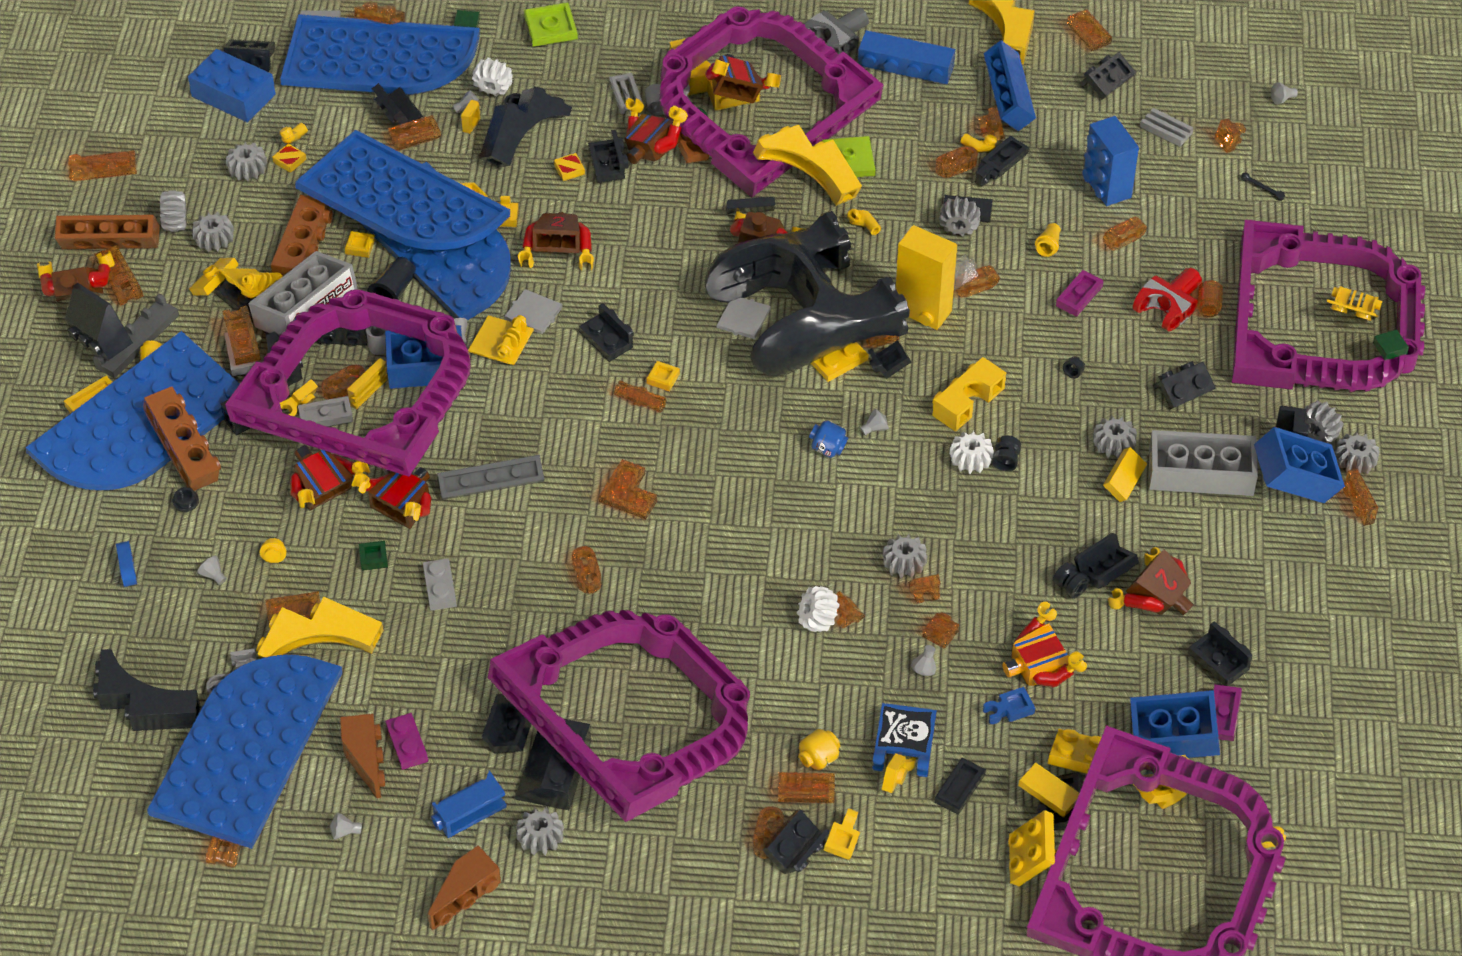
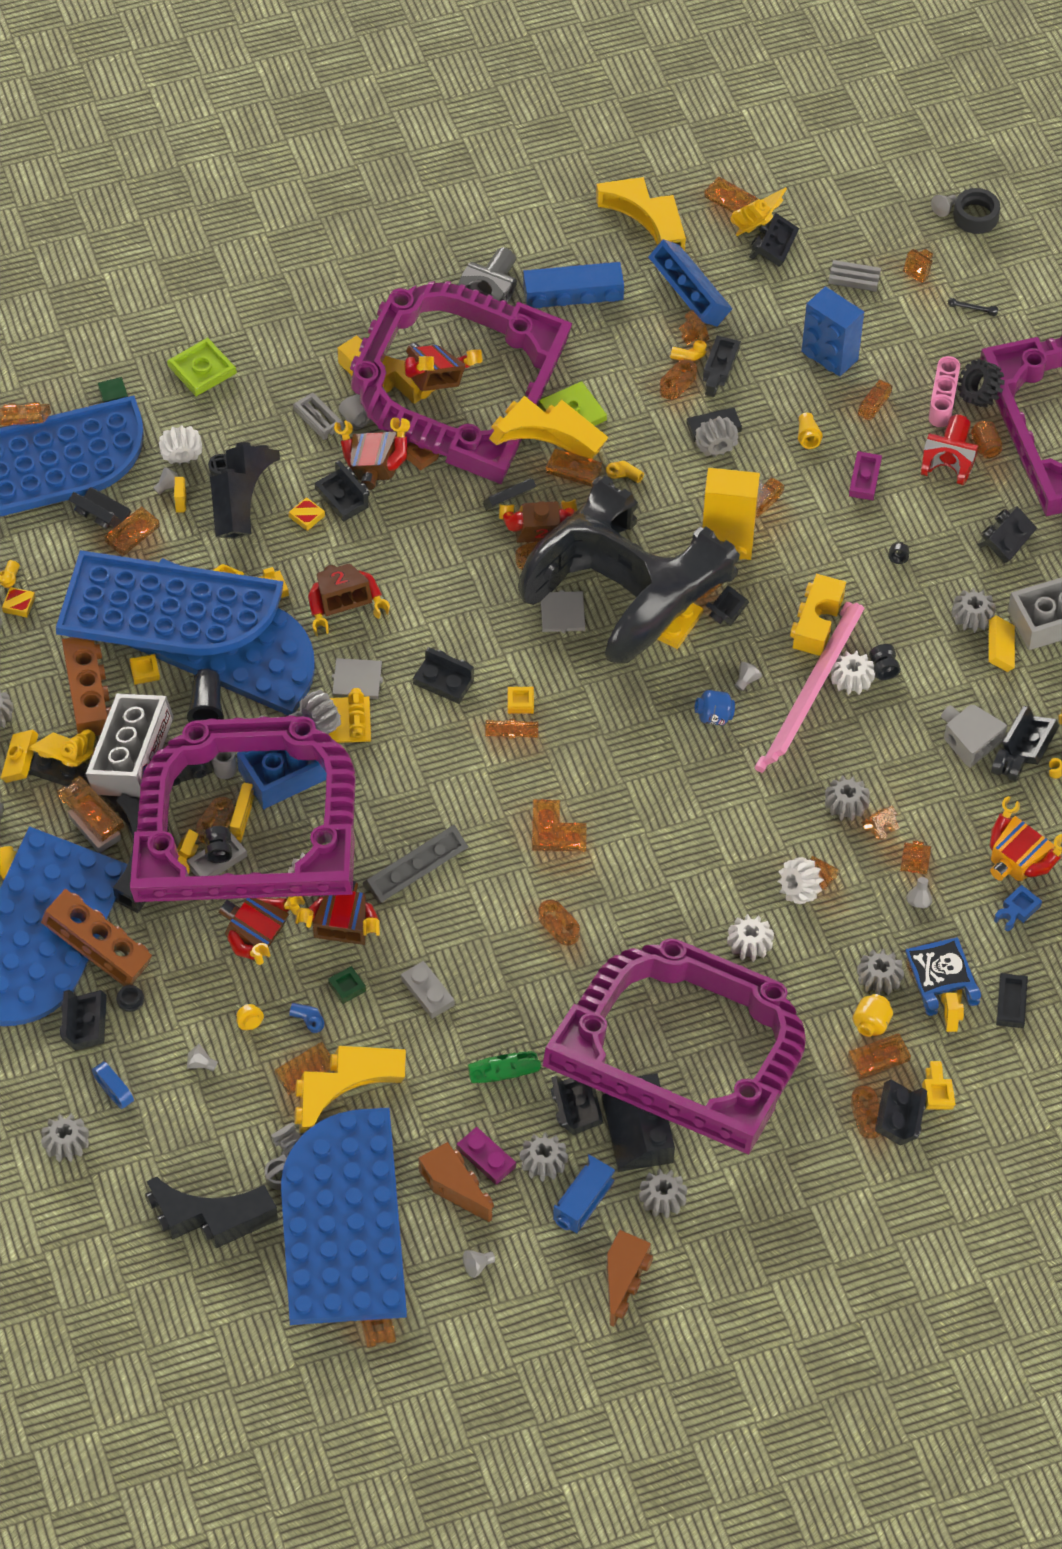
camera: 25 degrees left, 5 degrees up
(61, 591) = (65, 1137): none -> light grey gear
(134, 501) = (83, 1019): none -> black bracket
(326, 568) = (310, 1015): none -> blue arm
(327, 399) = (218, 845): none -> black wheel
(453, 759) = (543, 1156): none -> light grey gear
(460, 671) = (504, 1067): none -> green hinge
(477, 324) = (321, 710): none -> light grey gear
(747, 642) = (750, 937): none -> white gear
(819, 201) = (573, 467): none -> clear orange plate
(848, 715) = (880, 972): none -> light grey gear
(996, 402) = (850, 615): none -> bright pink piece
(1053, 540) = (972, 732): none -> light grey torso
(1100, 46) = (757, 212): none -> yellow hinge
(1193, 245) = (944, 391): none -> bright pink beam
(1228, 248) = (989, 388): none -> black tyre
(1312, 95) = (980, 197): none -> black tyre

